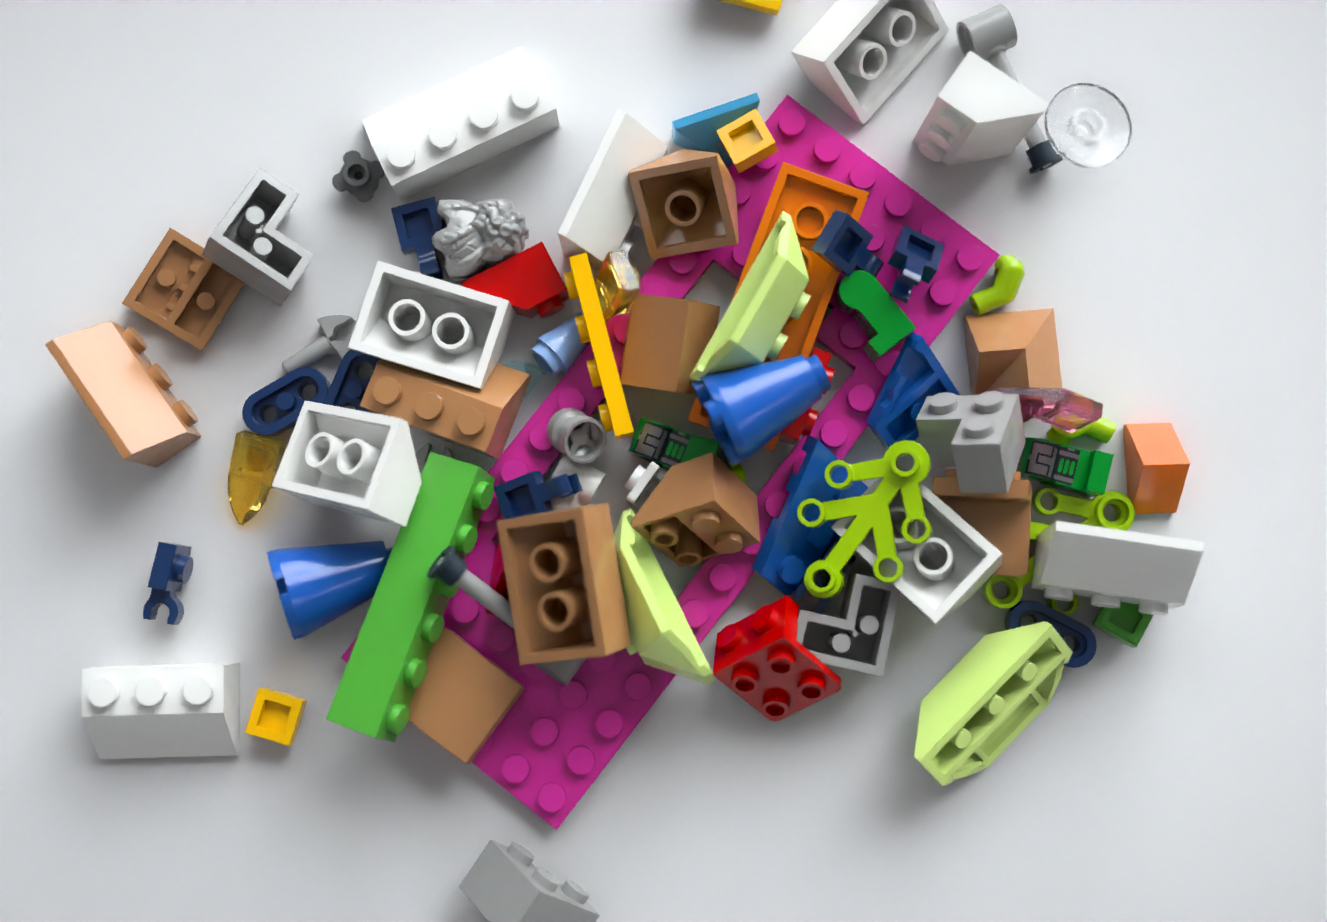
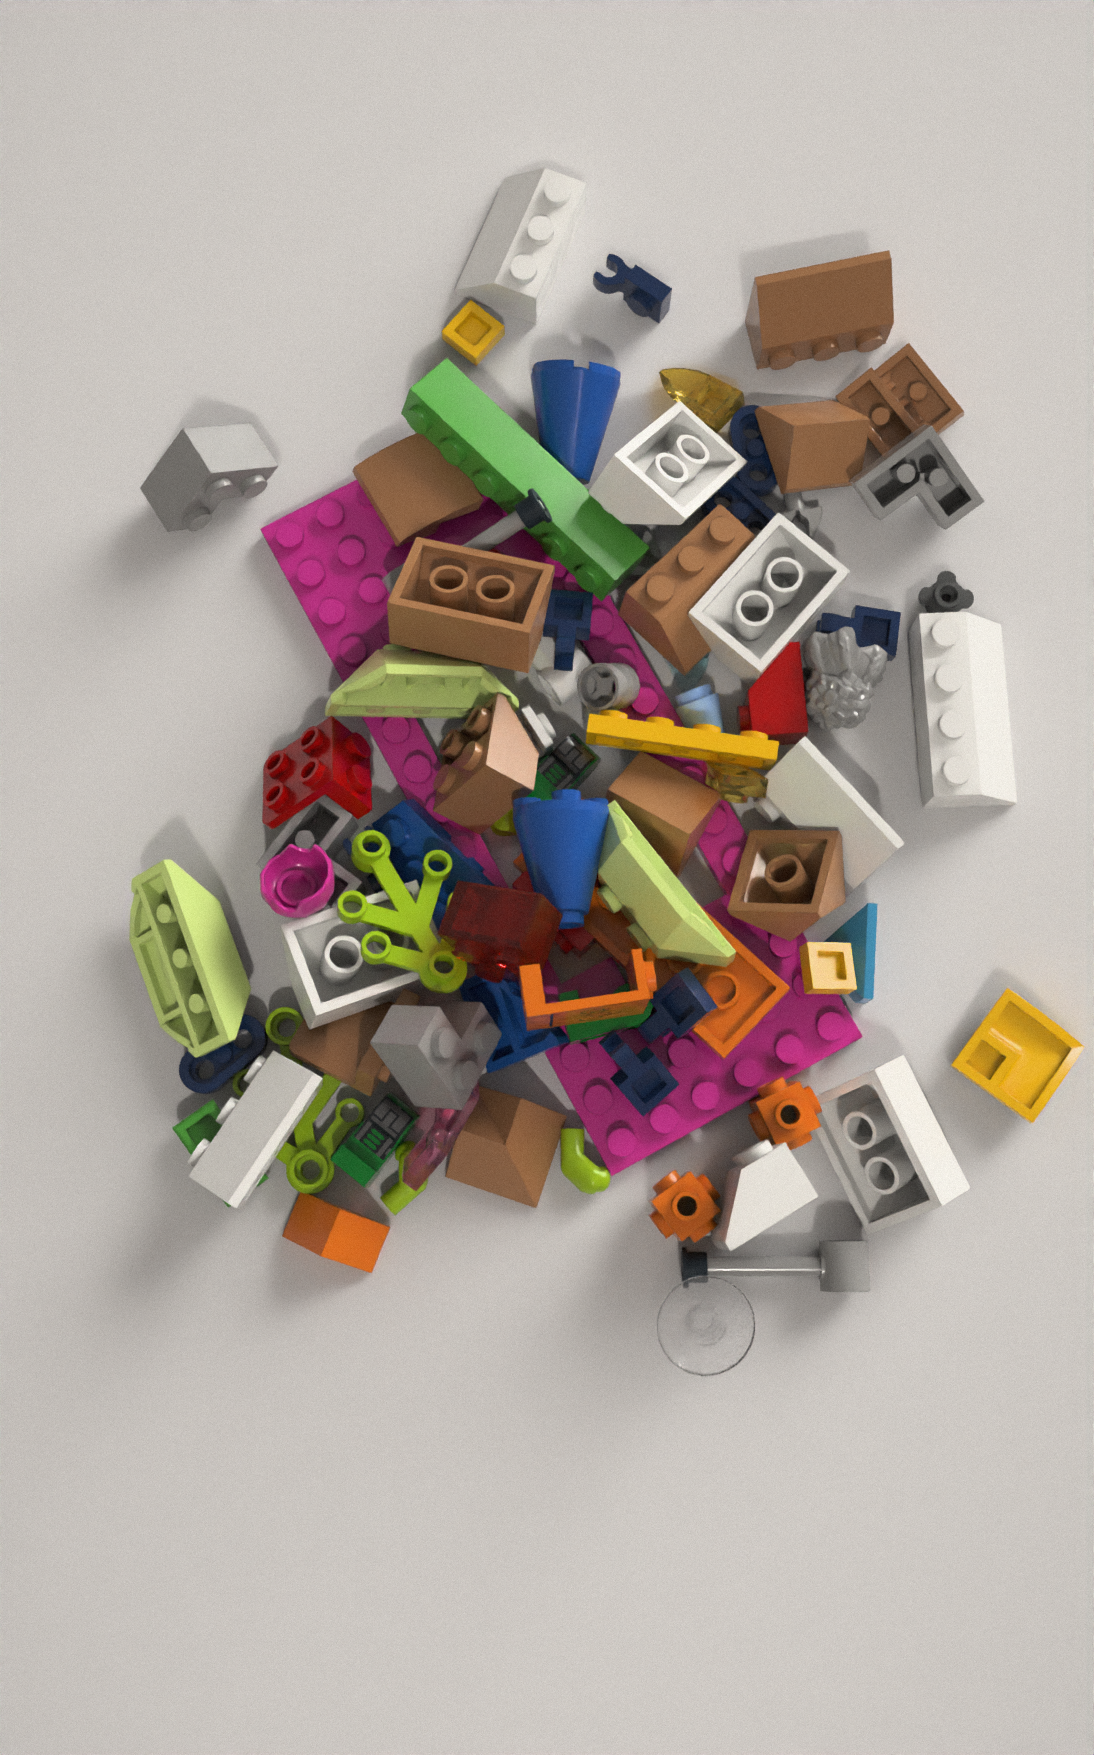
camera: 115 degrees right, 5 degrees down
(258, 350) = (813, 444): none -> medium nougat slope
(857, 422) = (499, 929): none -> clear red brick
(885, 129) = (767, 1109): none -> orange brick
(889, 627) = (298, 881): none -> dark pink hair
(893, 312) = (541, 1015): none -> orange panel
(1000, 182) = (666, 1215): none -> orange brick

